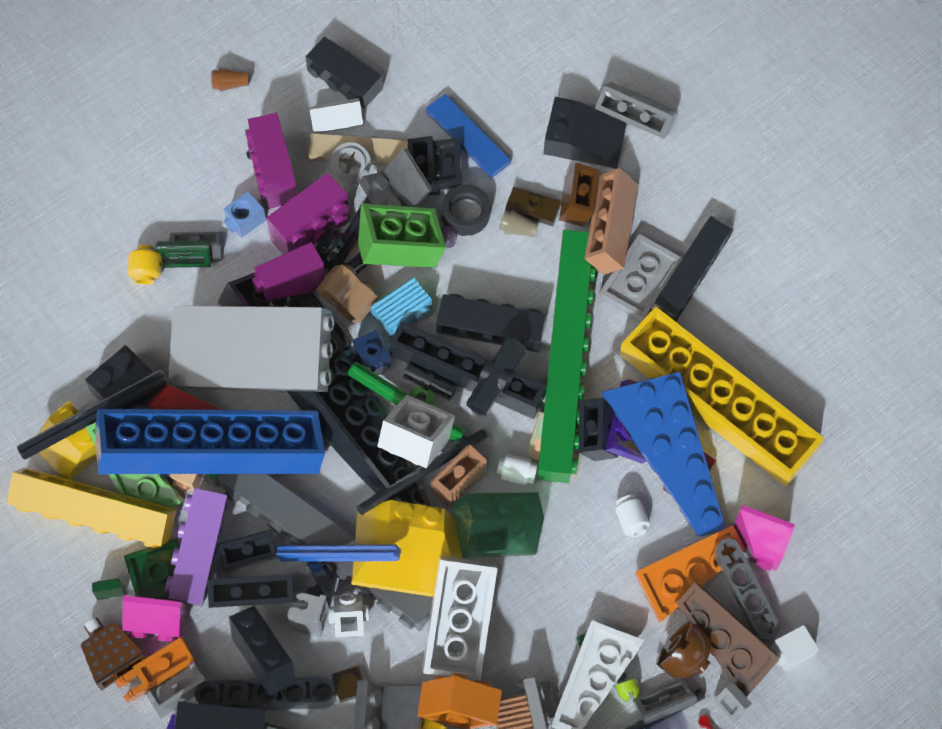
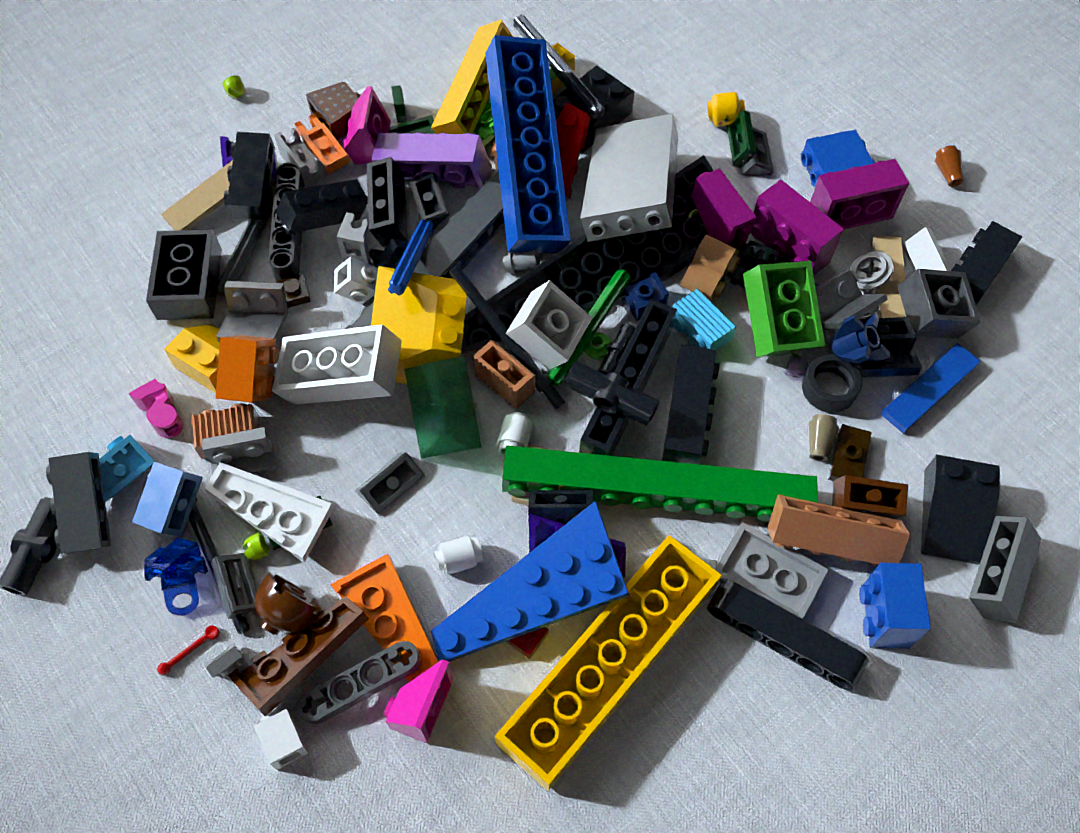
camera: 90 degrees right, 5 degrees down
(222, 171) = (834, 153): none -> blue brick
(244, 205) = (796, 177): medium blue brick -> none
(326, 471) = (521, 261): none -> light grey pin
(393, 113) = (939, 303): none -> flat silver brick
(443, 178) = (859, 341): none -> dark blue brick
(559, 580) = (390, 482): none -> dark grey slope
(672, 189) = (895, 606): none -> blue brick

